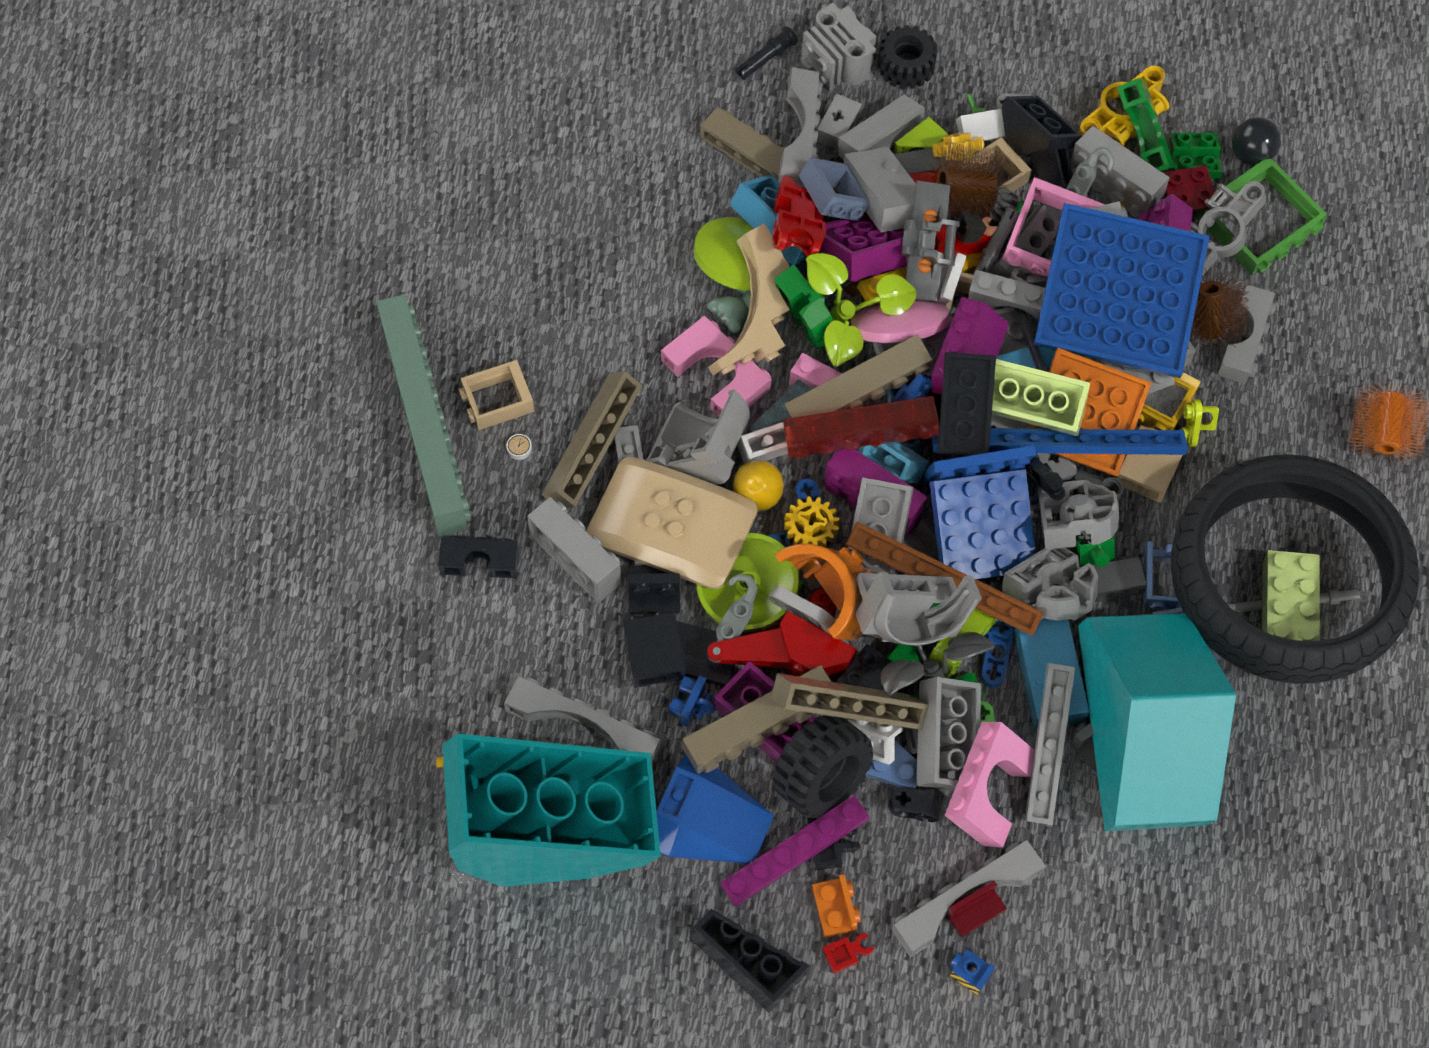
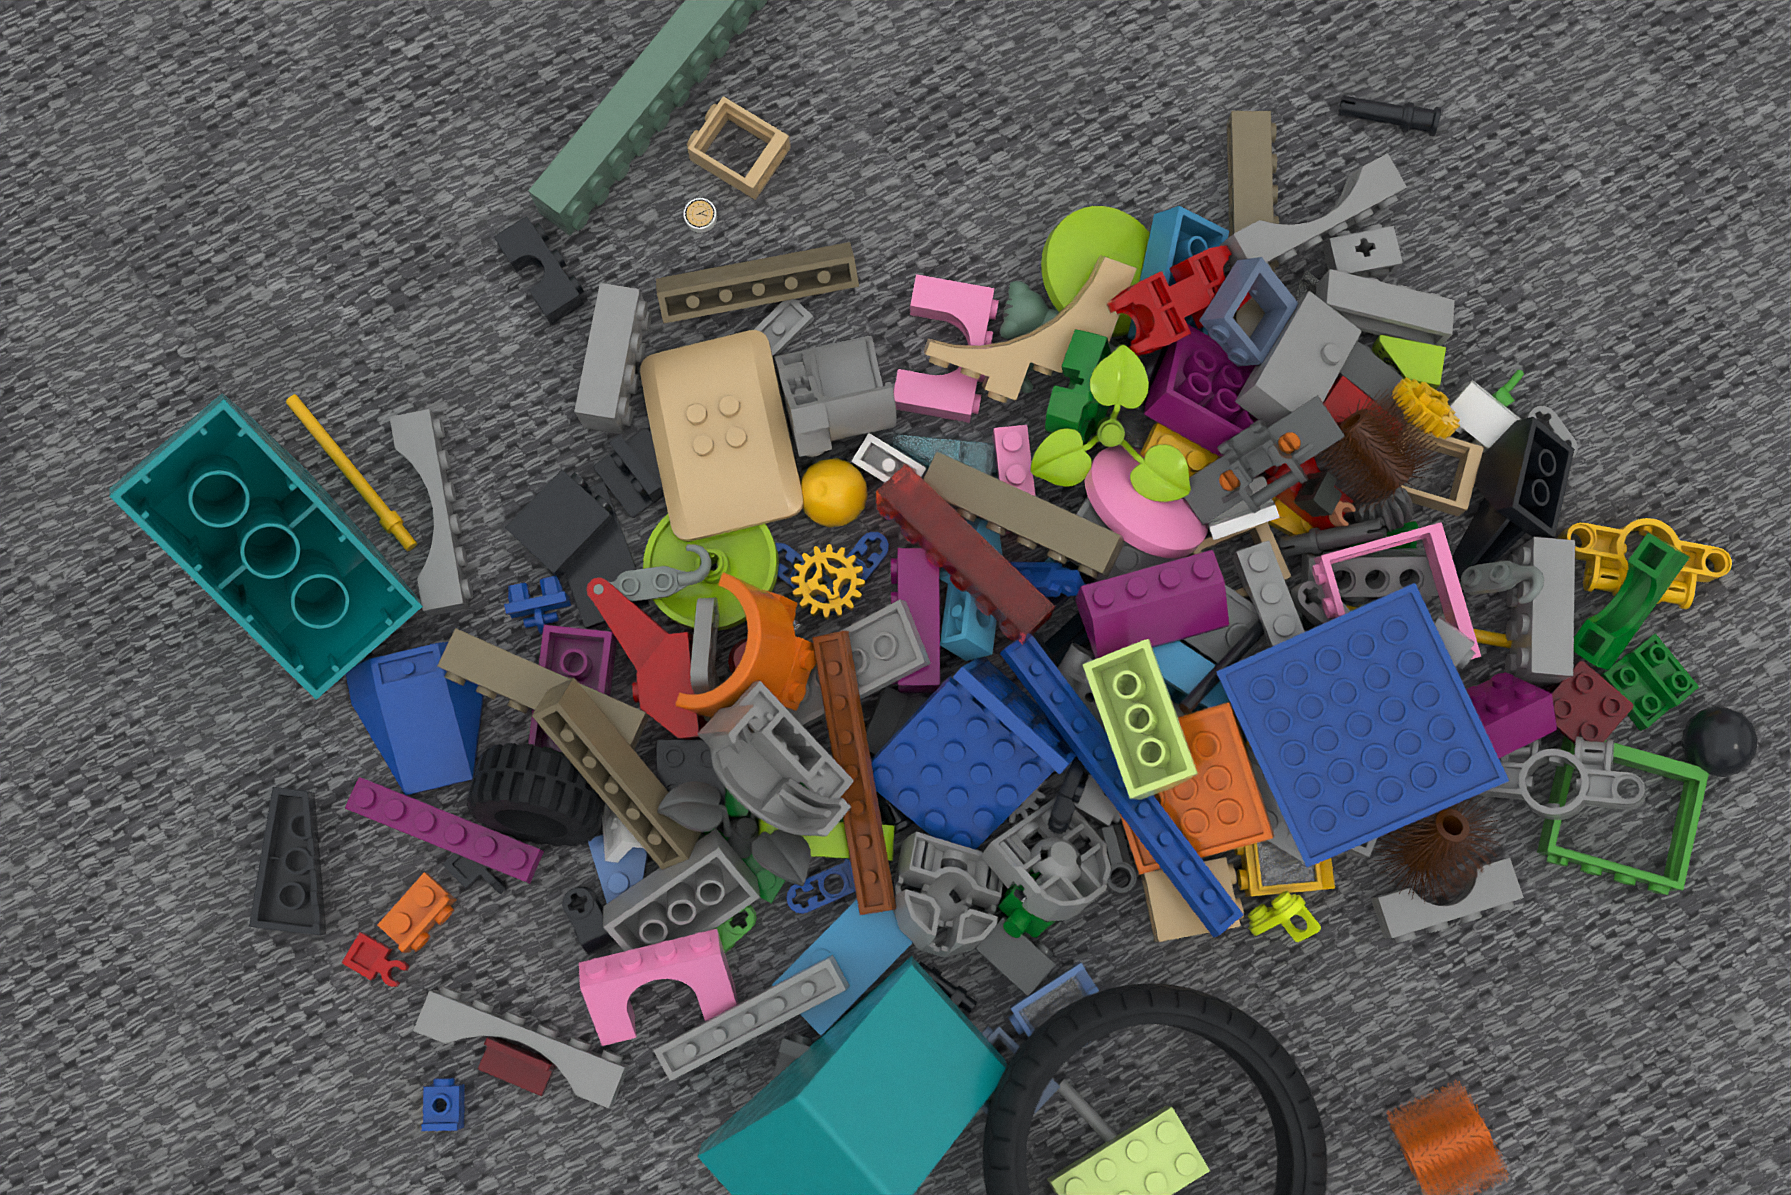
camera: 55 degrees right, 15 degrees up
(838, 47) = (1456, 184): light grey piece -> none
(907, 71) = (1525, 247): black tyre -> none
(966, 404) = (1072, 651): black tile -> none

